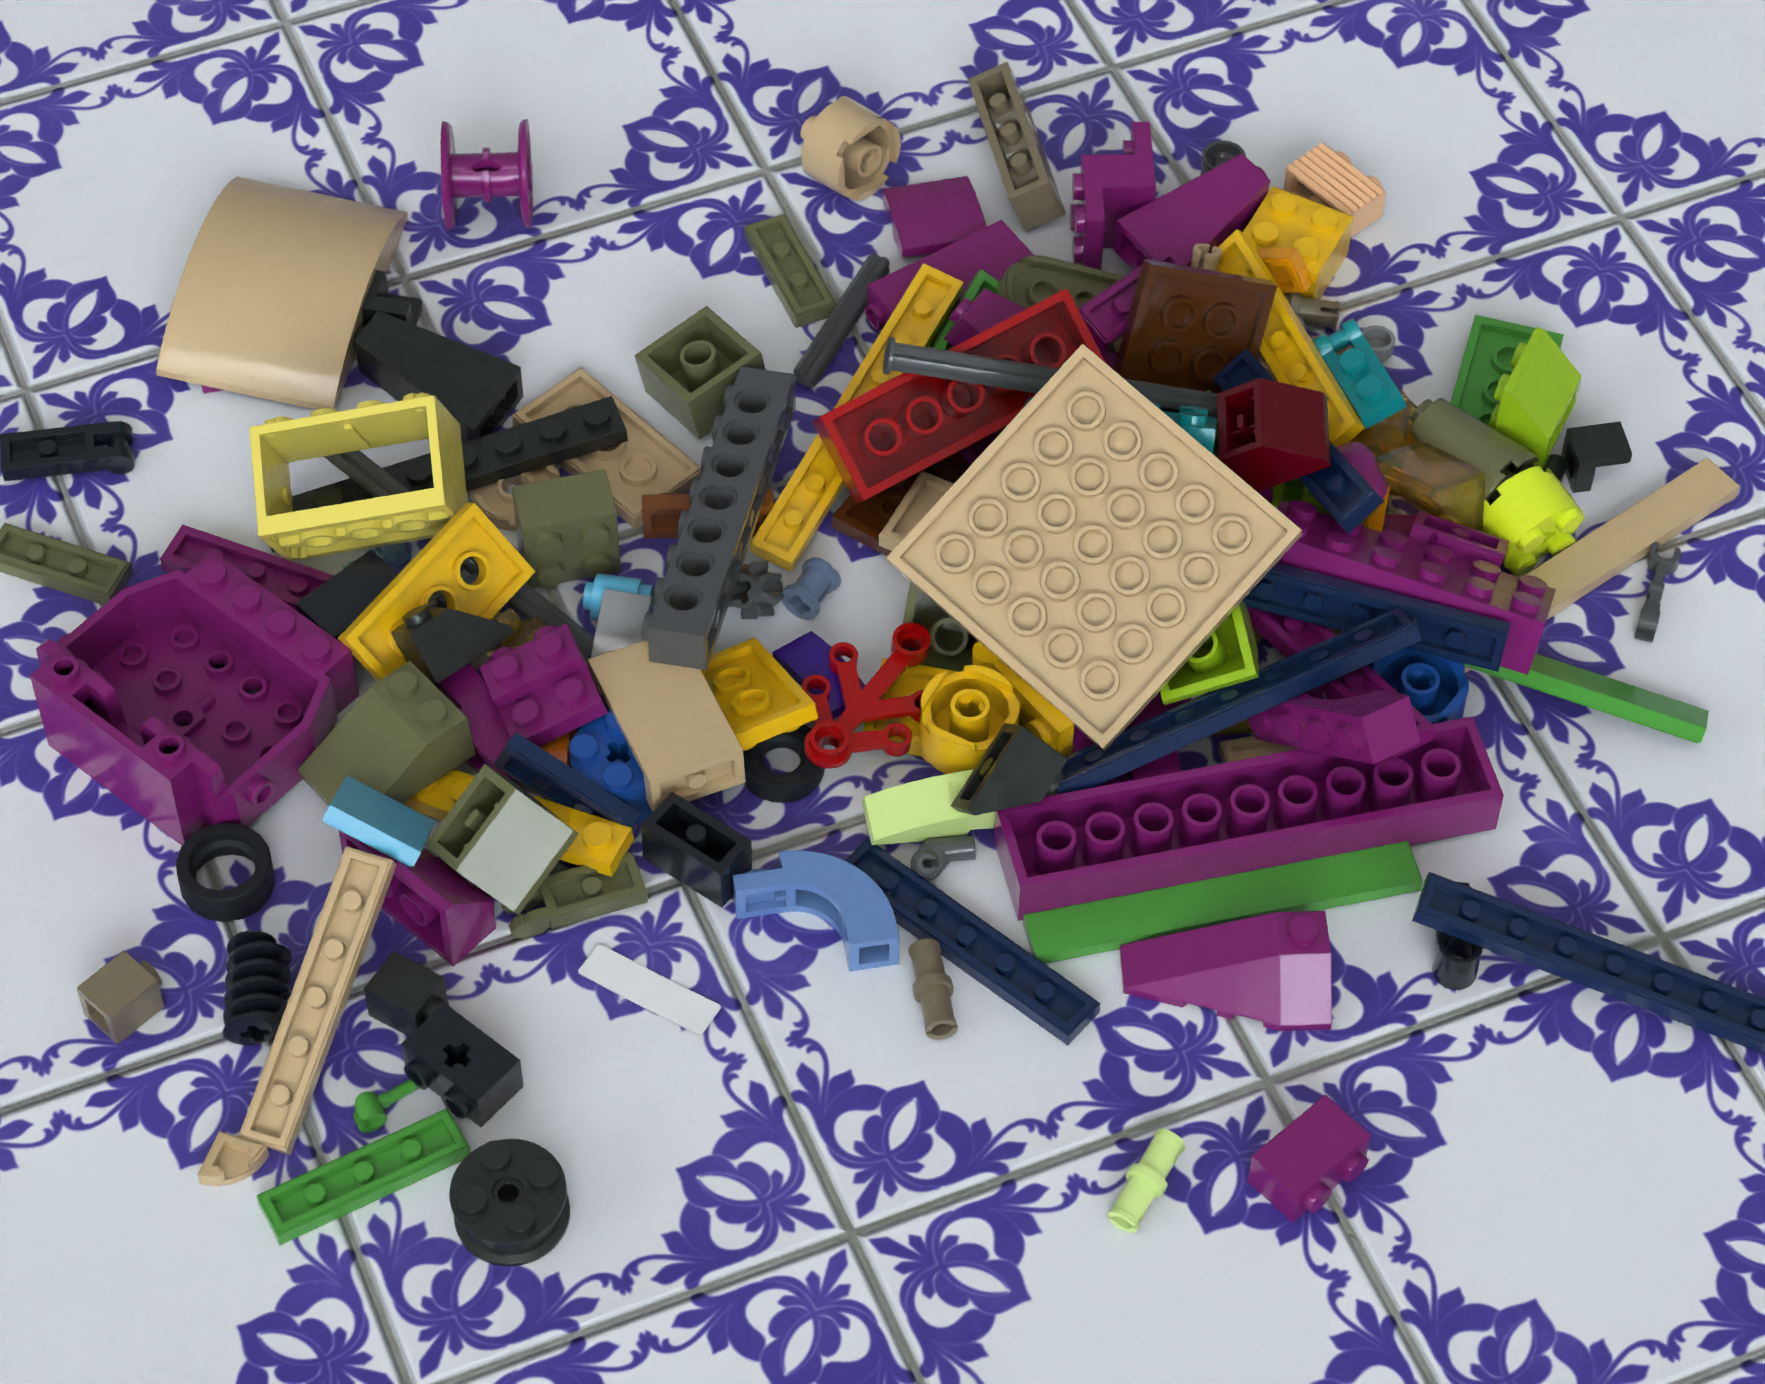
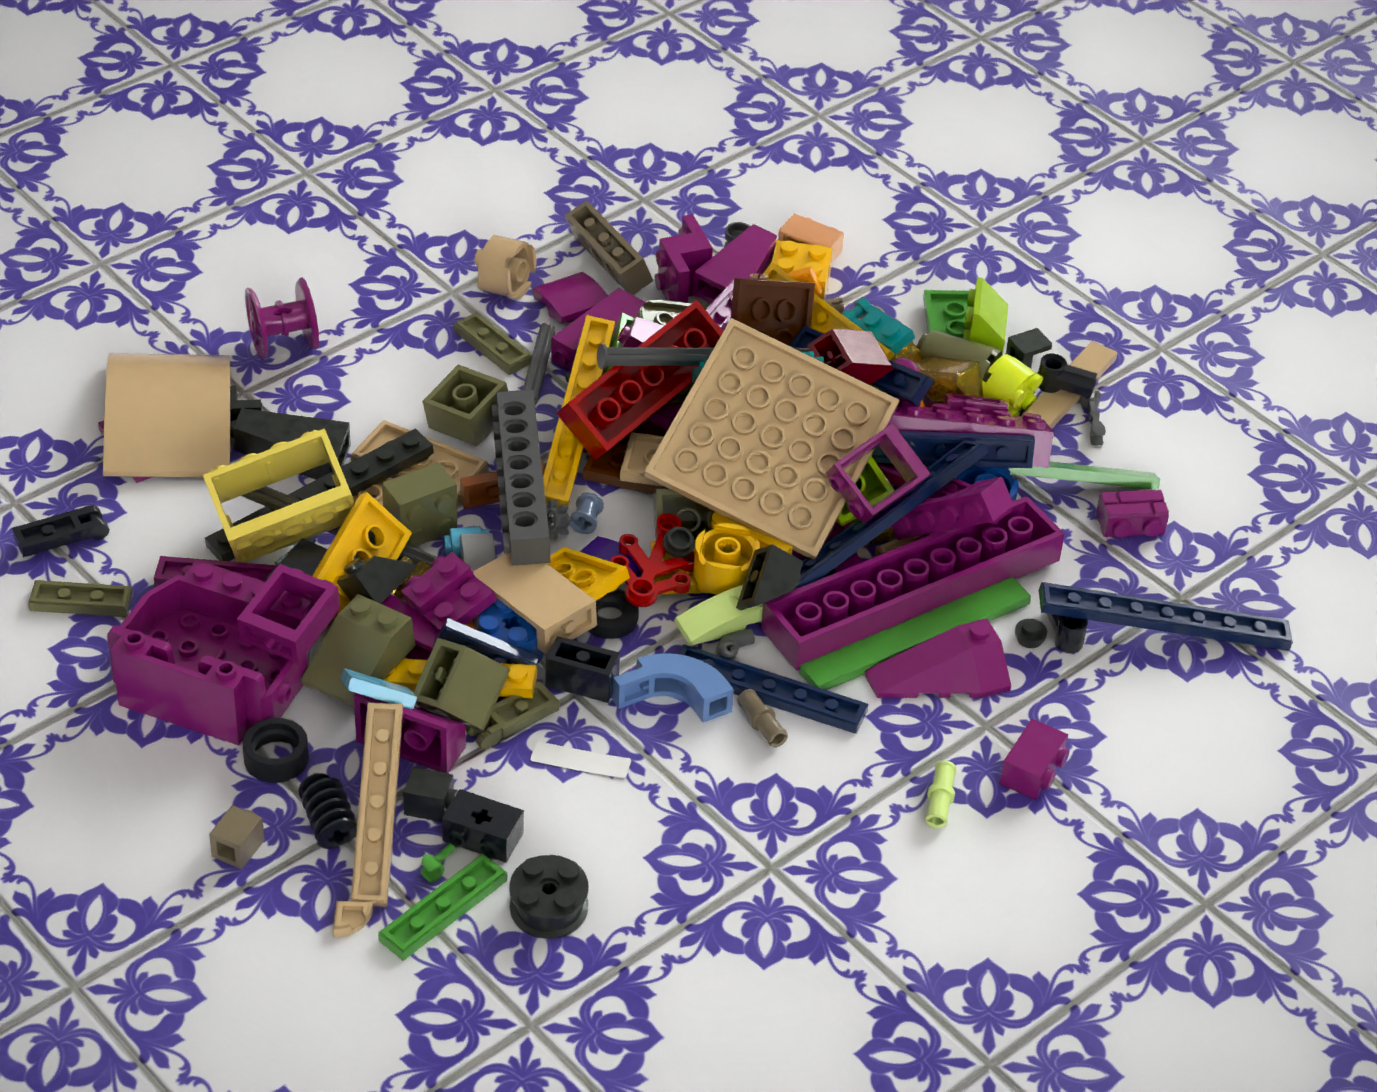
camera: 20 degrees left, 10 degrees down
(322, 699) = (279, 638): none -> magenta window
(911, 674) = (679, 542): none -> pearl dark grey plate
(1272, 620) = (899, 454): none -> magenta window
(1398, 941) = (1030, 633): none -> pearl dark grey plate
(1618, 512) = (1060, 376): none -> black piece
(1641, 776) = (1132, 513): none -> magenta brick

